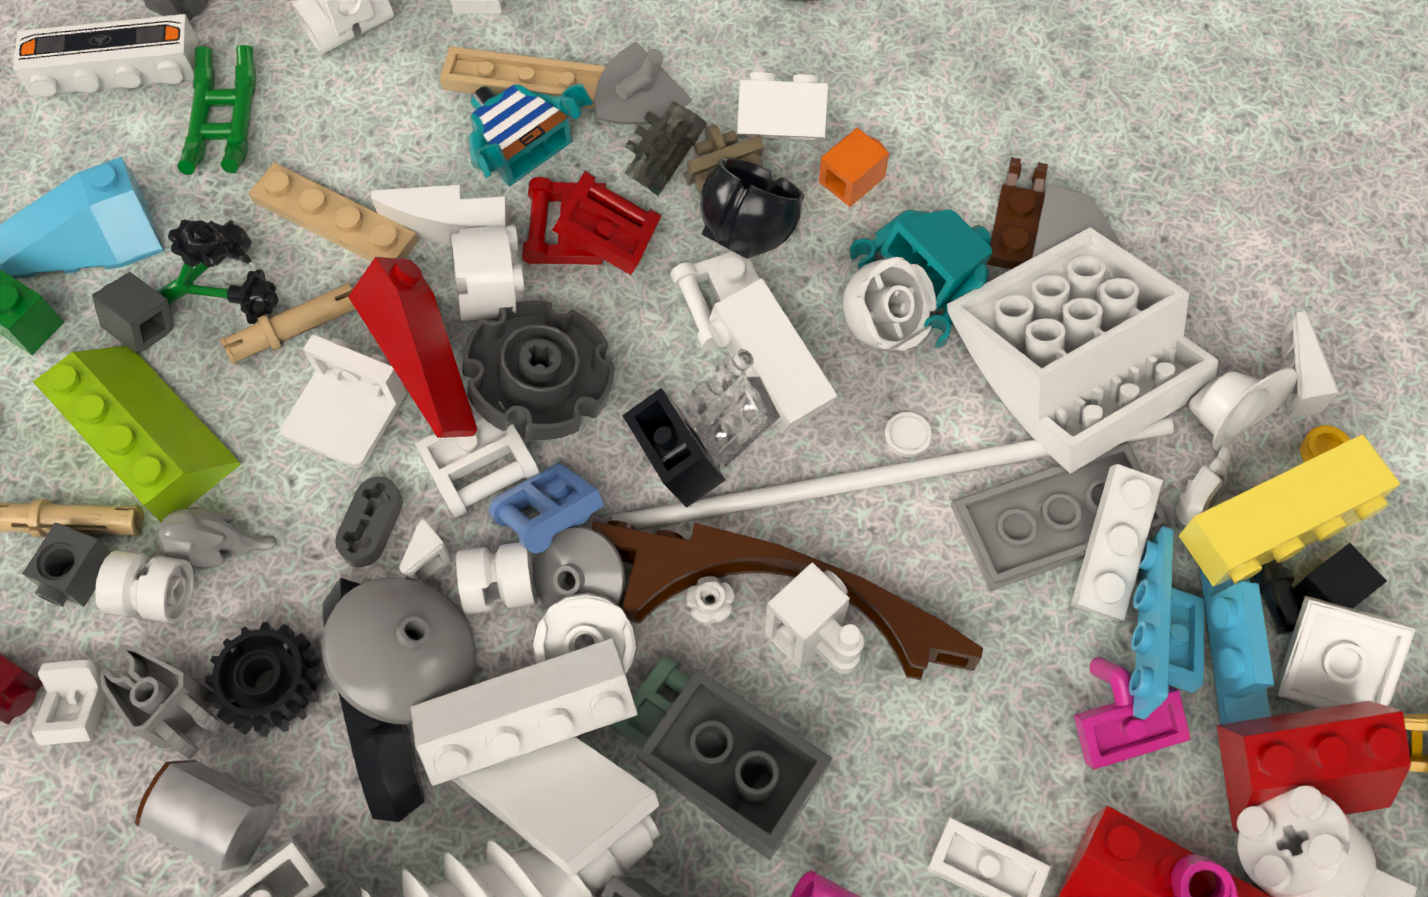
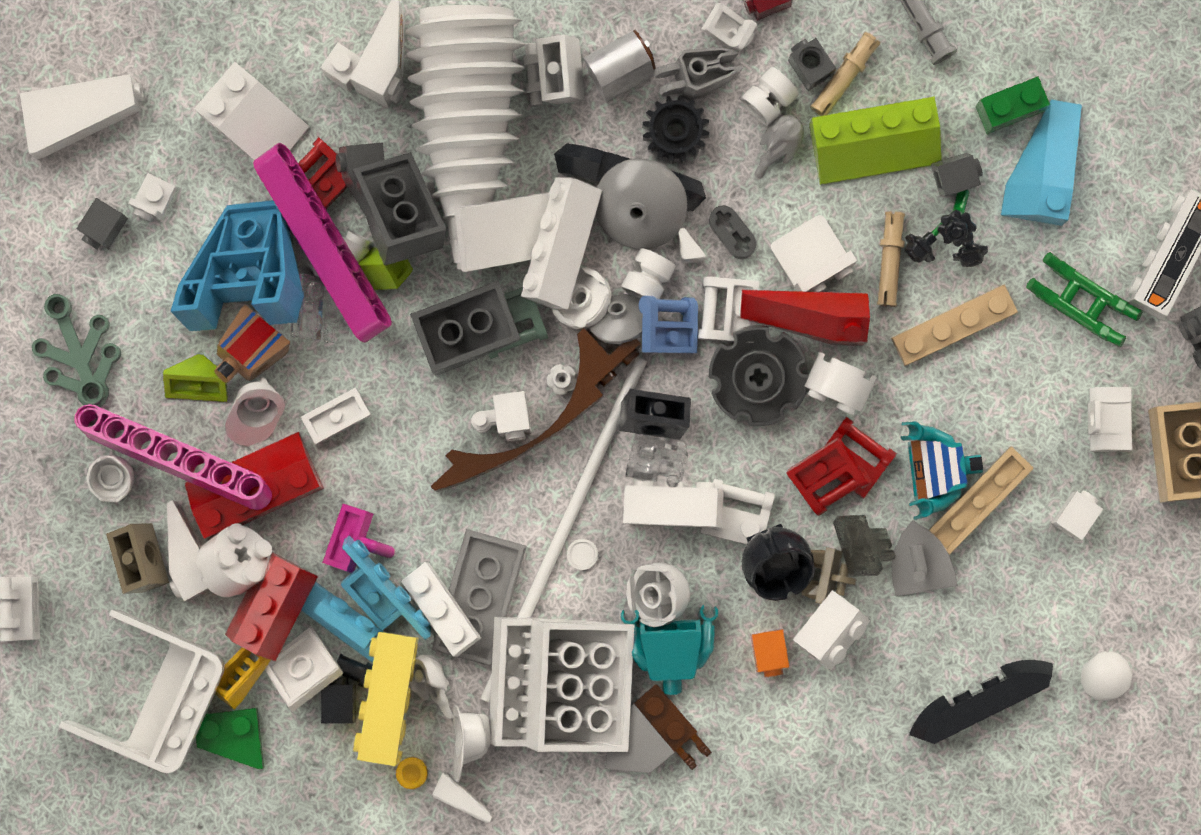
camera: 130 degrees right, 20 degrees up
(438, 210) = (901, 389): white slope -> none

